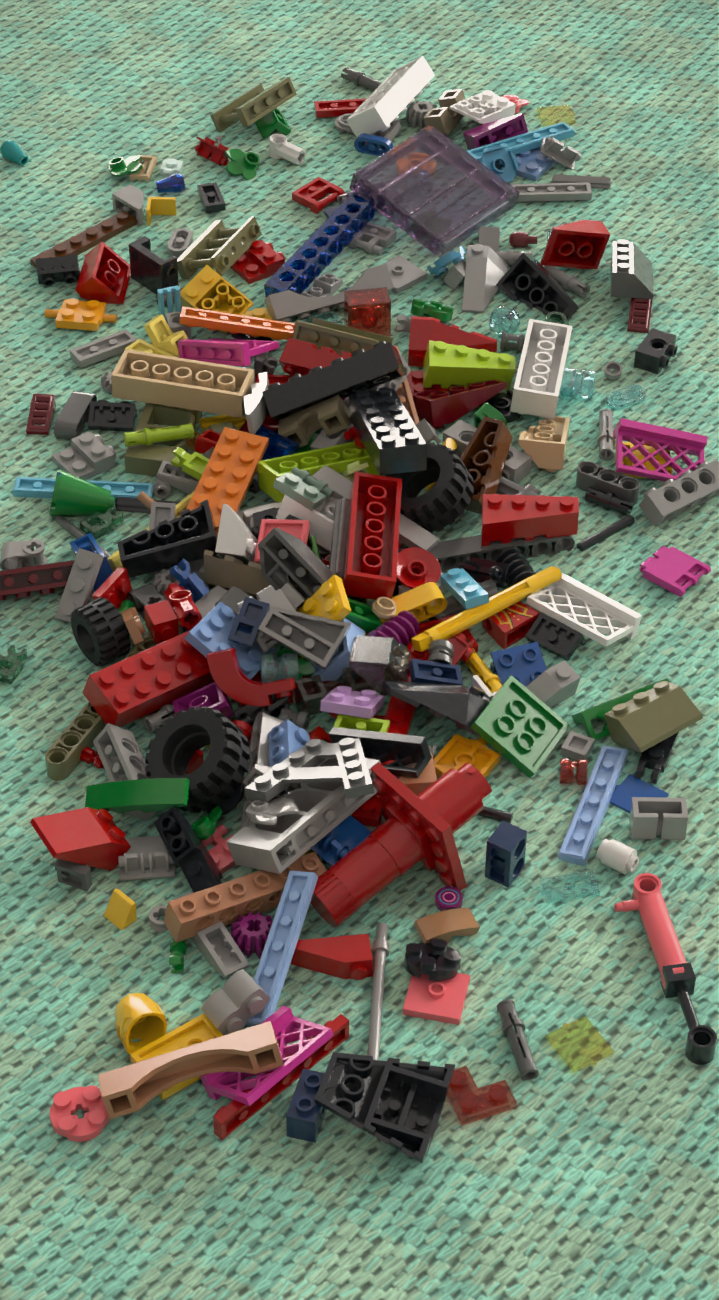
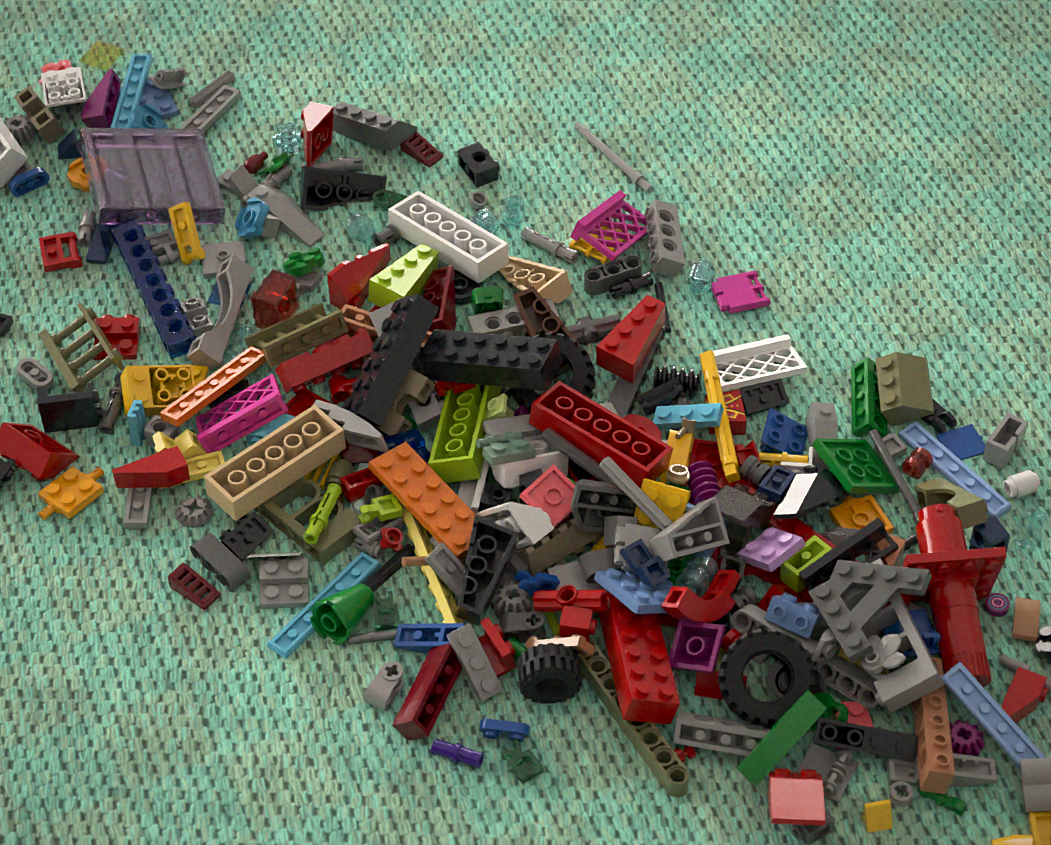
camera: 55 degrees left, 5 degrees up
(29, 635) = (493, 728): none -> blue plate
(104, 436) = (274, 554): none -> white sticker
(128, 334) = (154, 471): none -> red slope
(174, 481) = (393, 533): none -> red plate
(315, 575) = (646, 505): none -> light grey axle
(392, 236) = (186, 233): none -> yellow plate
(446, 590) = (687, 426): none -> dark tan hand
(502, 798) = (896, 474): none -> dark grey bar
(517, 806) = (967, 506): none -> olive arch
(536, 248) = (278, 162): none -> green plate
(665, 534) = (701, 276): none -> clear light blue head

